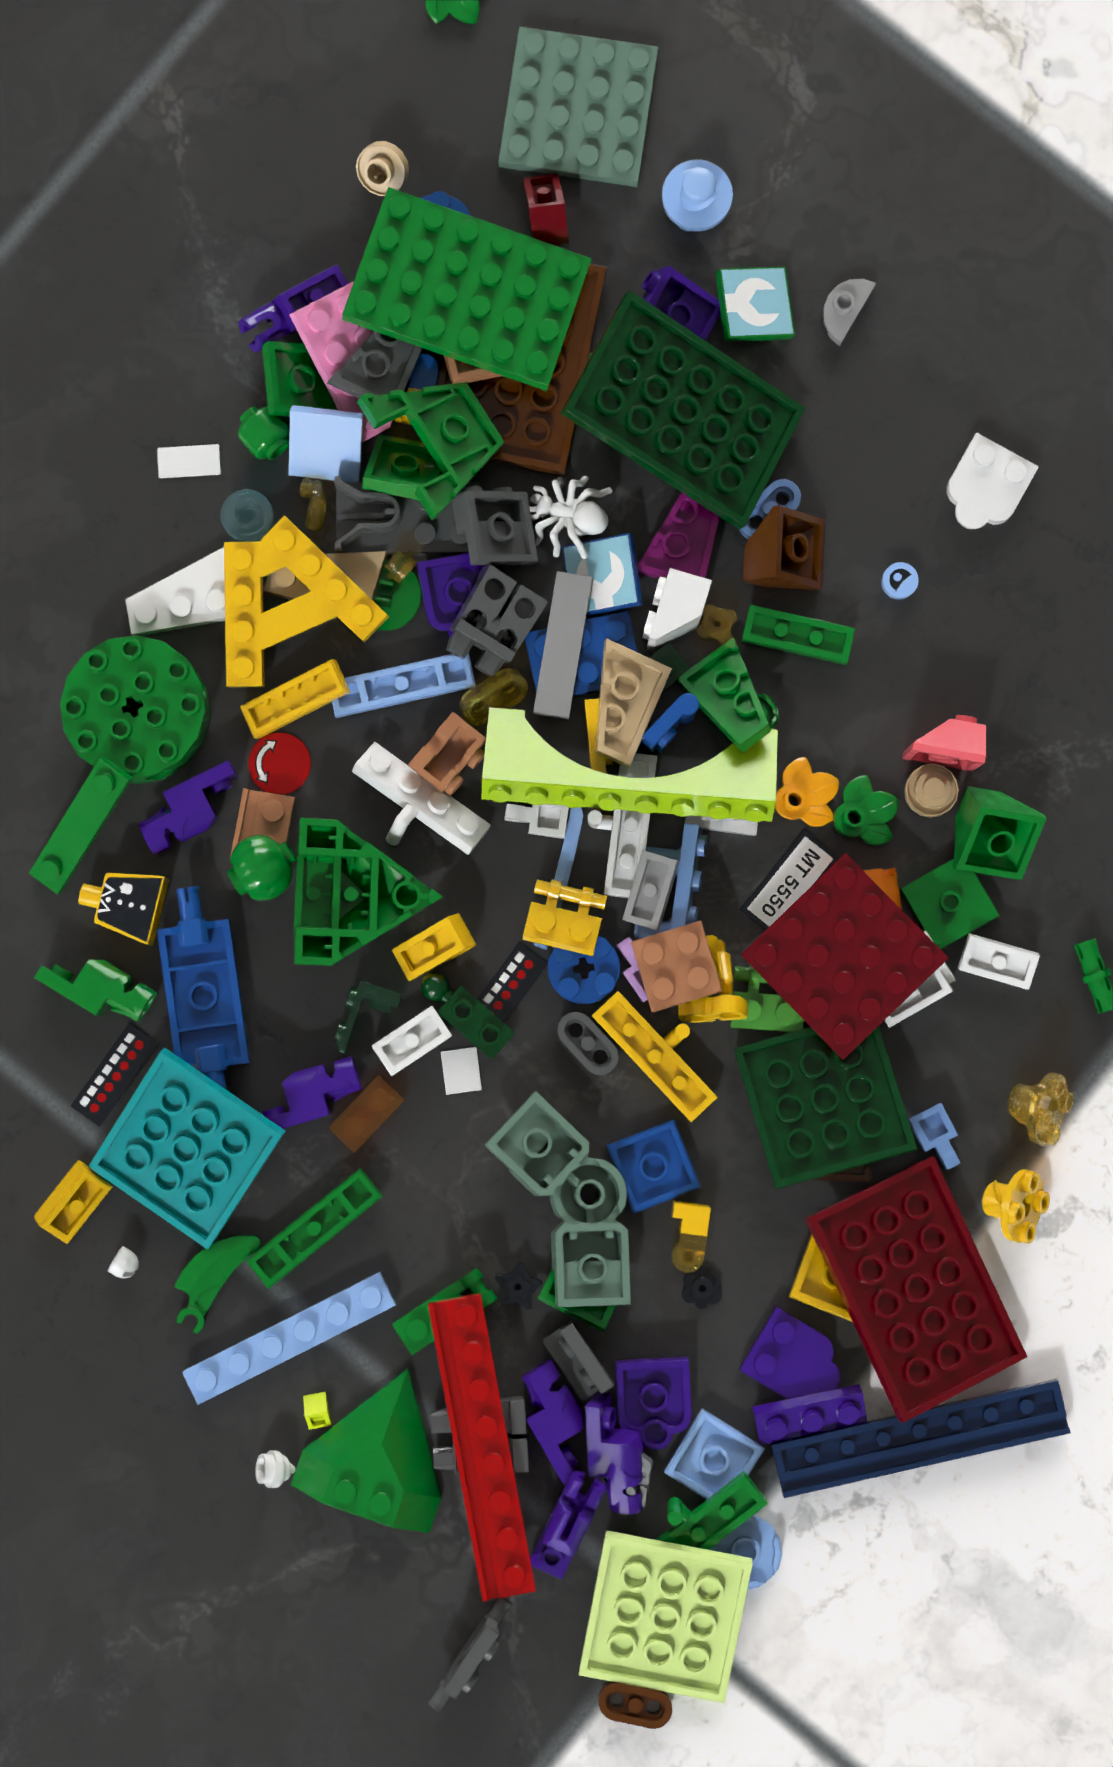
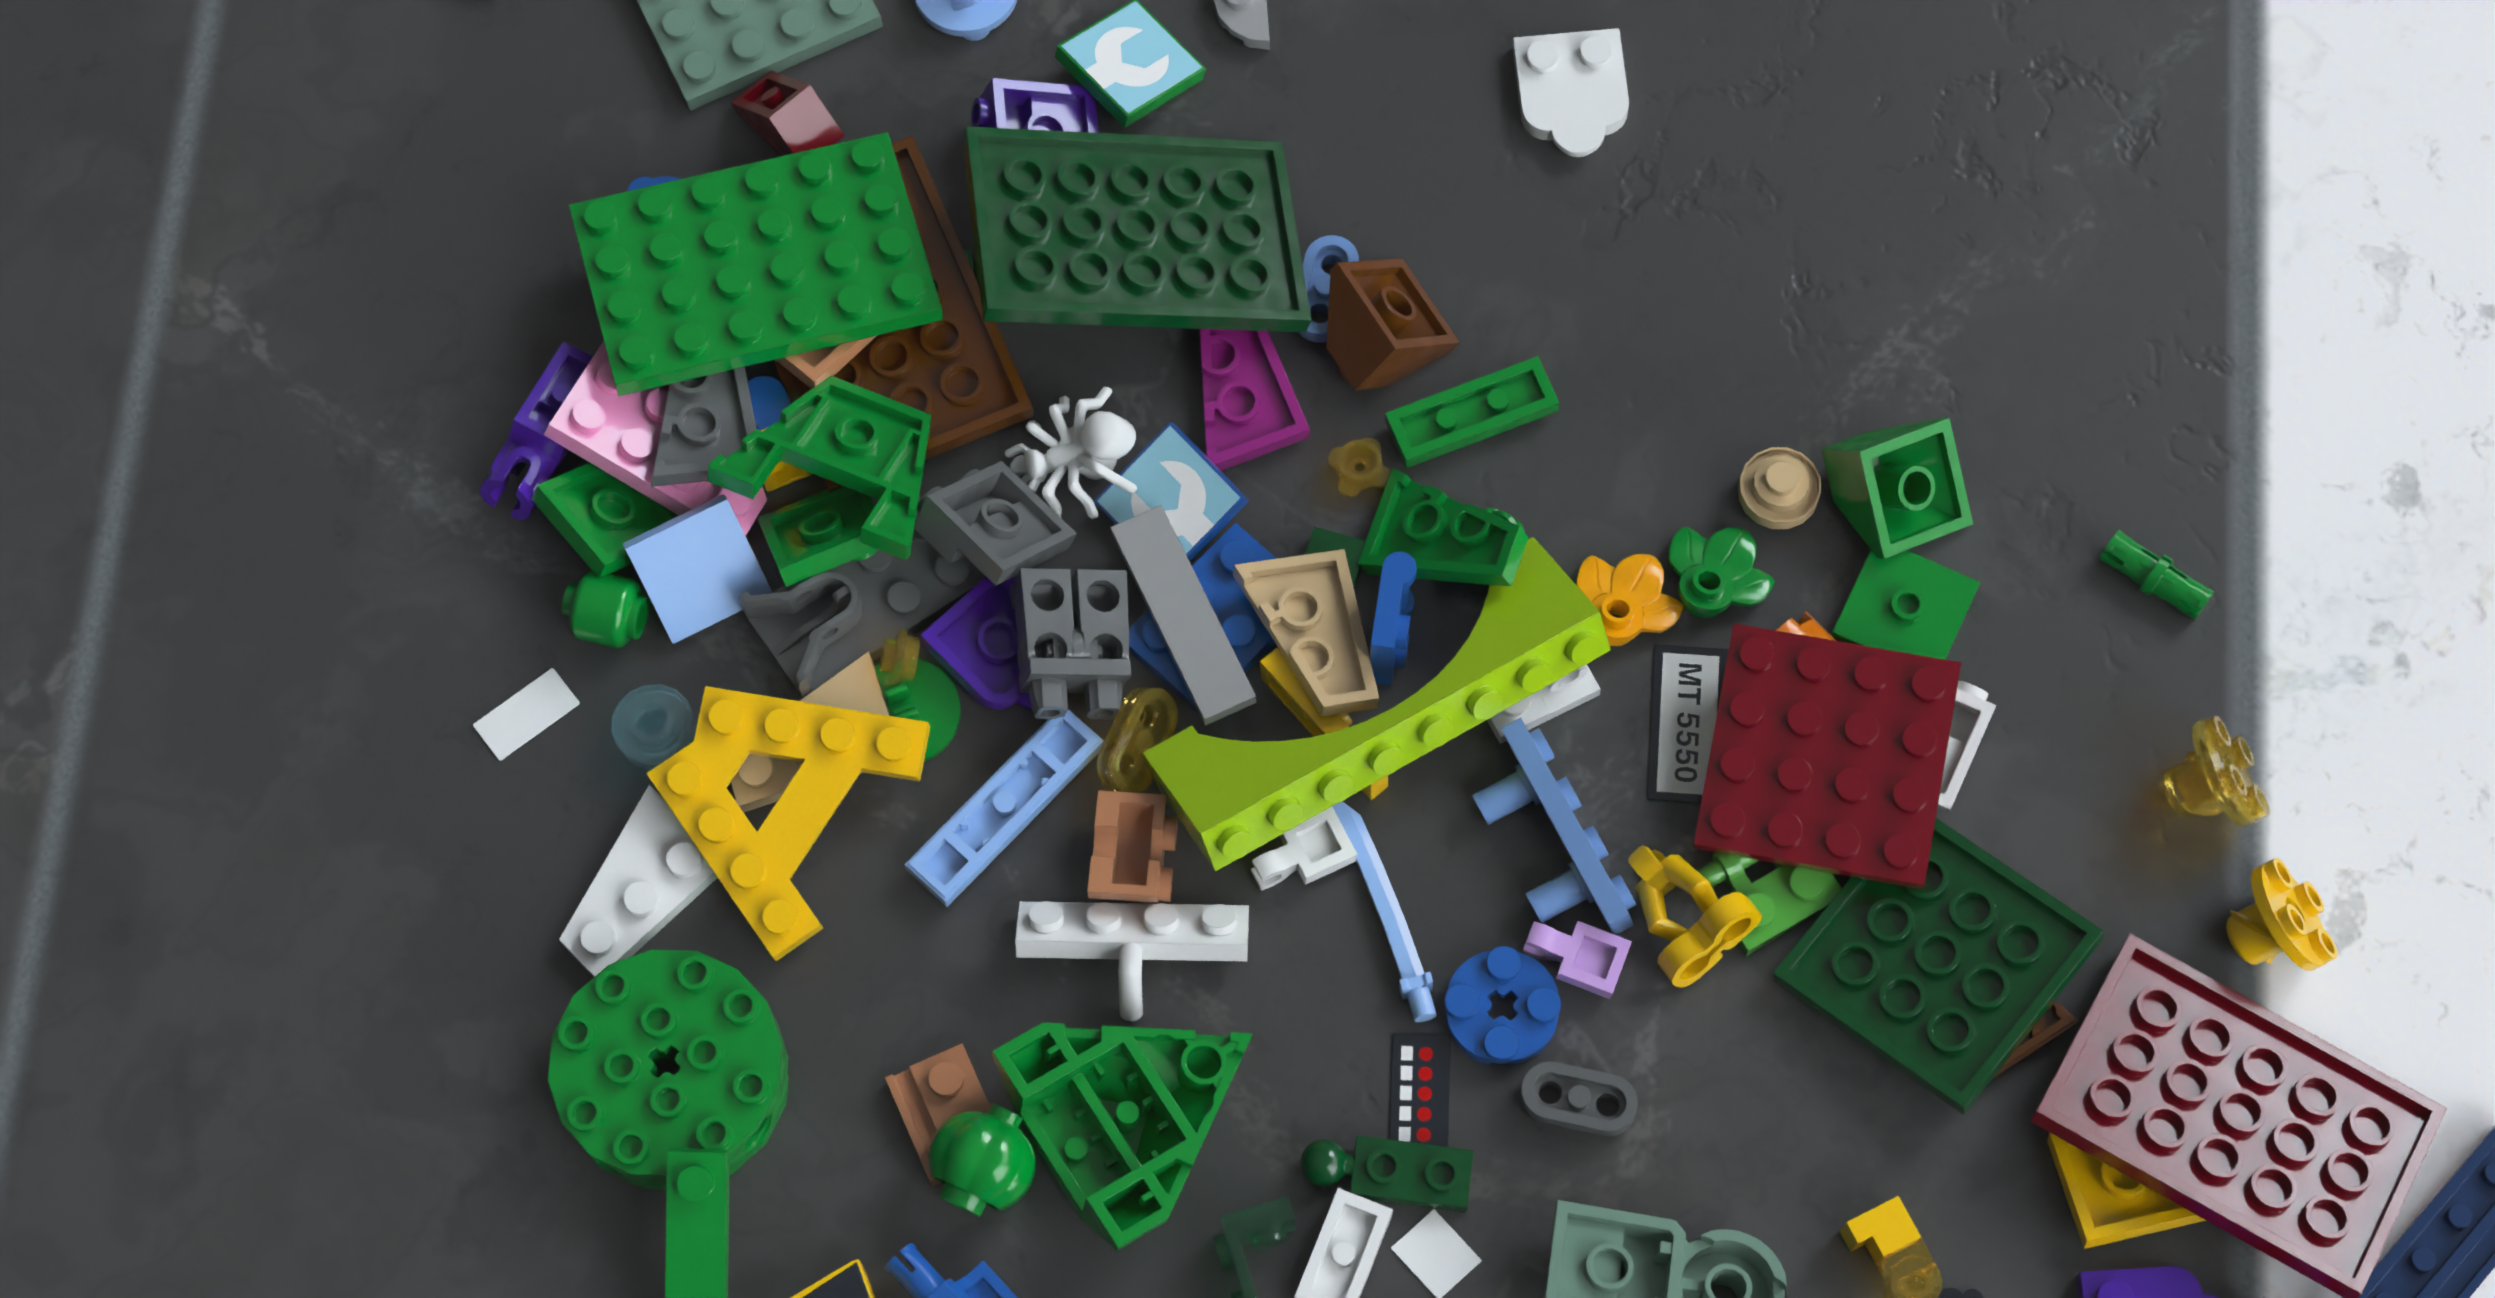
camera: 30 degrees left, 15 degrees down
(189, 808) = (829, 1150): dark purple plate -> none
(279, 763) = (910, 1016): red sticker -> none
(295, 699) = (876, 914): yellow plate -> none
(317, 503) = (736, 652): clear yellow arm -> none
(382, 167) = (540, 197): tan plate -> none
(434, 946) = (1285, 1110): yellow plate -> none
(563, 927) = (1437, 967): yellow plate -> none
(627, 834) = (1440, 805): white plate -> none
(651, 890) = (1519, 840): light grey plate -> none
(654, 1166) = (1783, 1199): blue tile -> none
(656, 1055) = (1678, 1052): yellow plate -> none
(676, 966) = (1624, 910): nougat plate -> none
(679, 609) = (1296, 470): white slope -> none
(899, 580) = (1549, 269): light blue tile -> none
(934, 1131) = (2110, 904): medium blue plate -> none
(954, 744) = (1765, 411): coral slope -> none
(998, 961) = (2022, 637): white plate -> none

